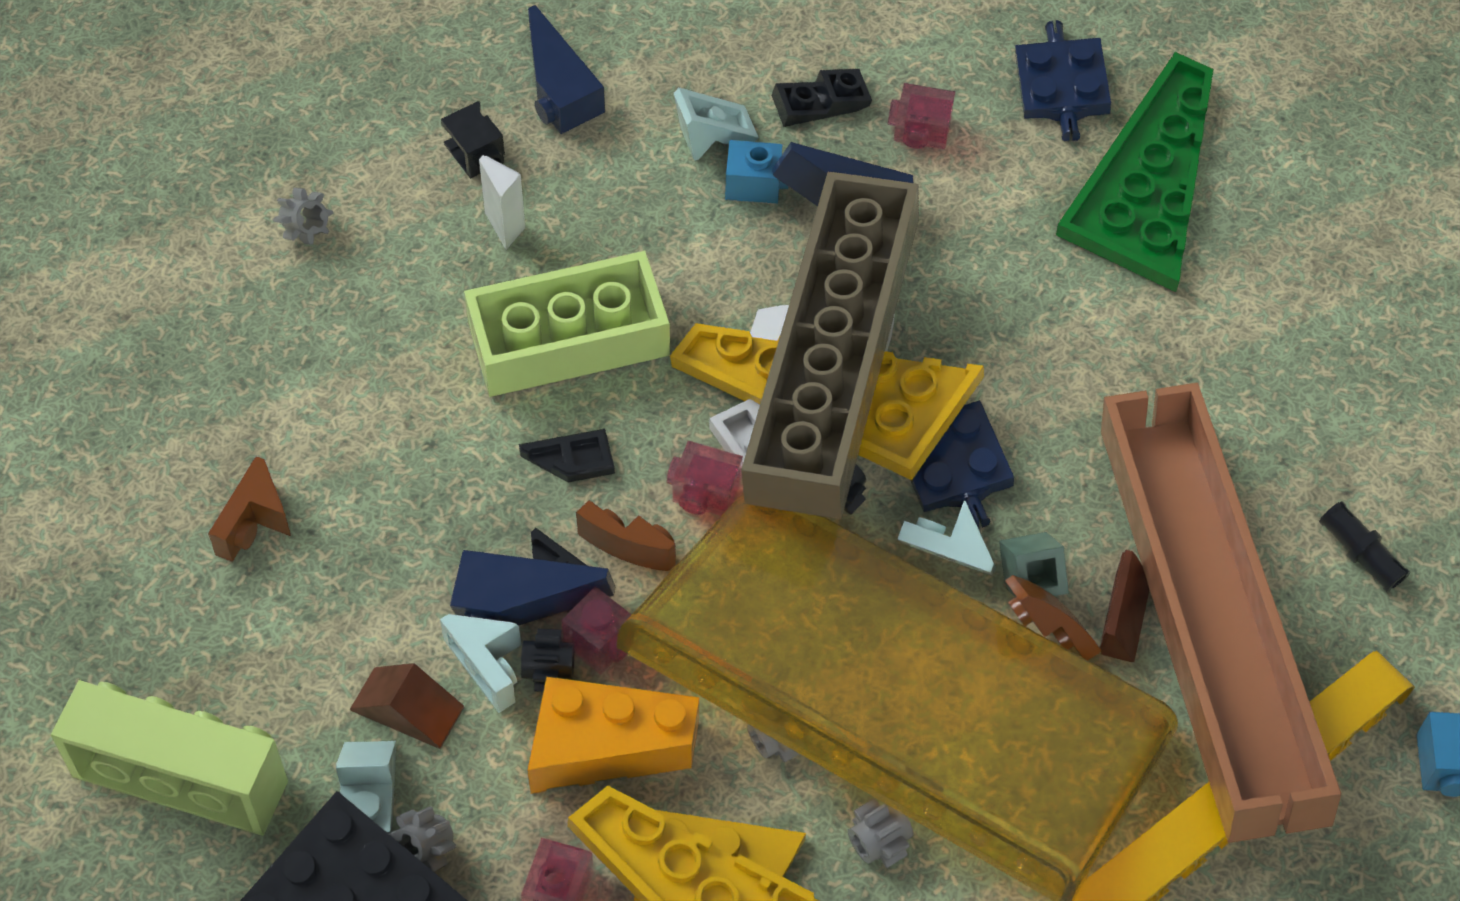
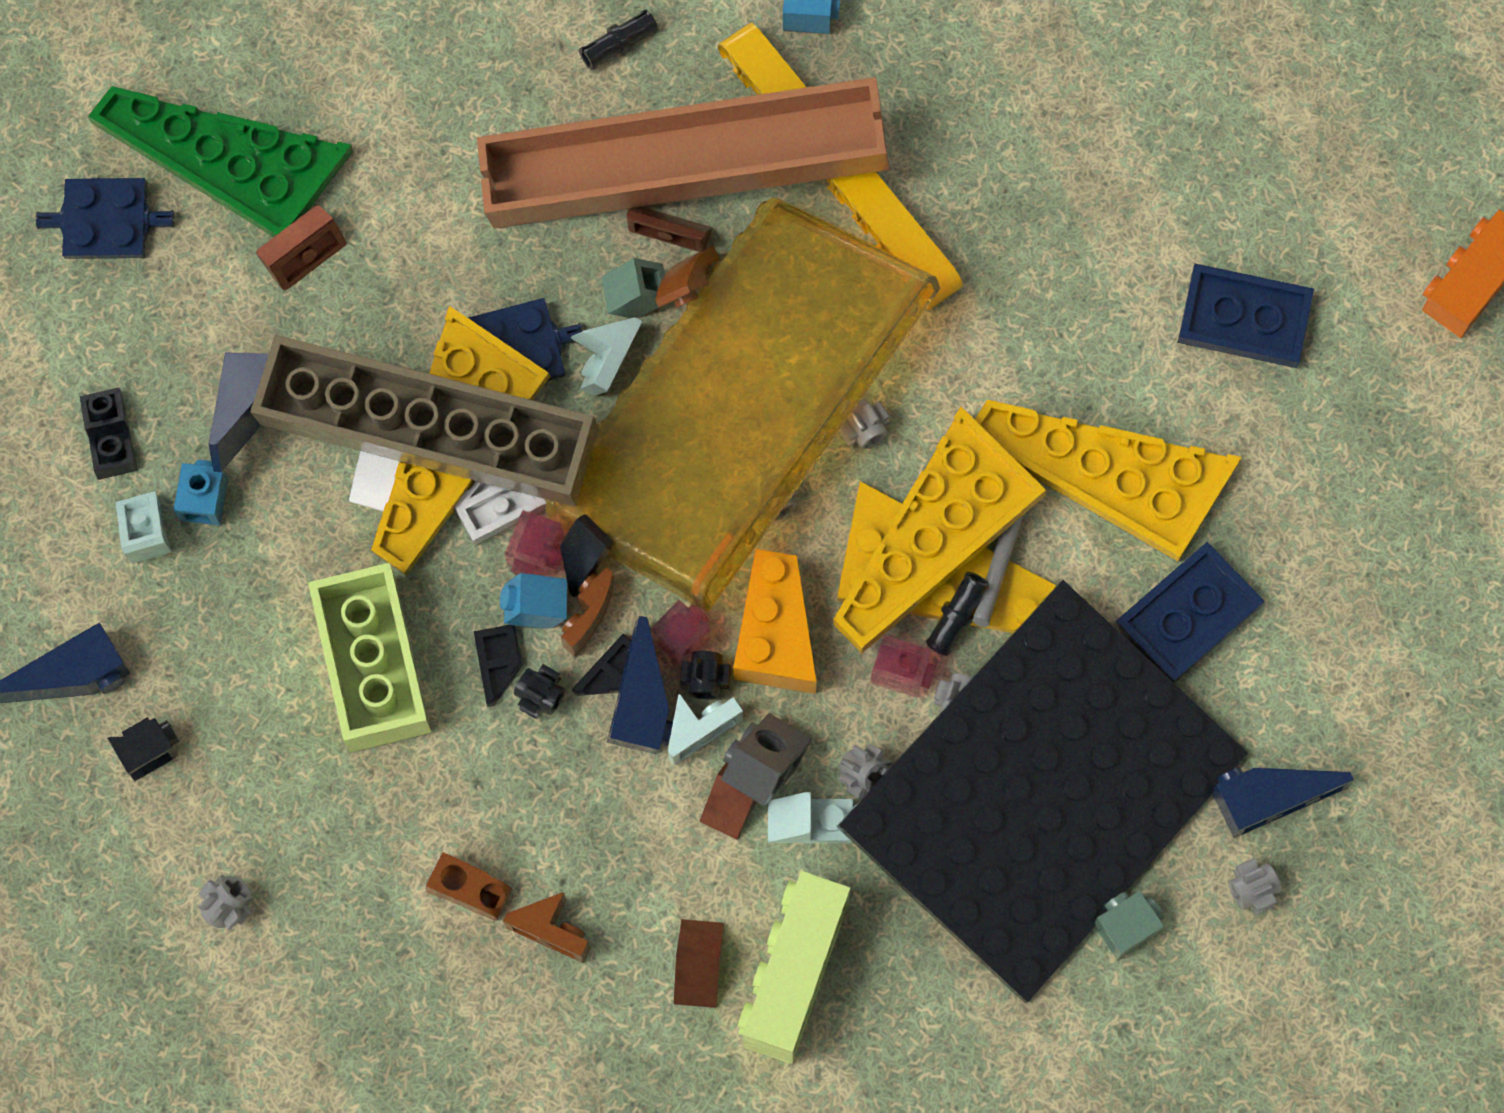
camera: 85 degrees left, 15 degrees up
(203, 666) = (698, 963): none -> copper slope
(305, 431) = (468, 887): none -> dark orange leg
(408, 710) = (764, 758): none -> dark grey brick
(502, 199) = (231, 714): white slope -> none
(529, 490) = (539, 691): none -> black gear
(635, 476) = (534, 601): none -> dark azure brick
(697, 519) = (583, 551): none -> black tile
(922, 116) = (147, 342): clear pink brick -> none
(1049, 245) = (301, 247): none -> copper slope

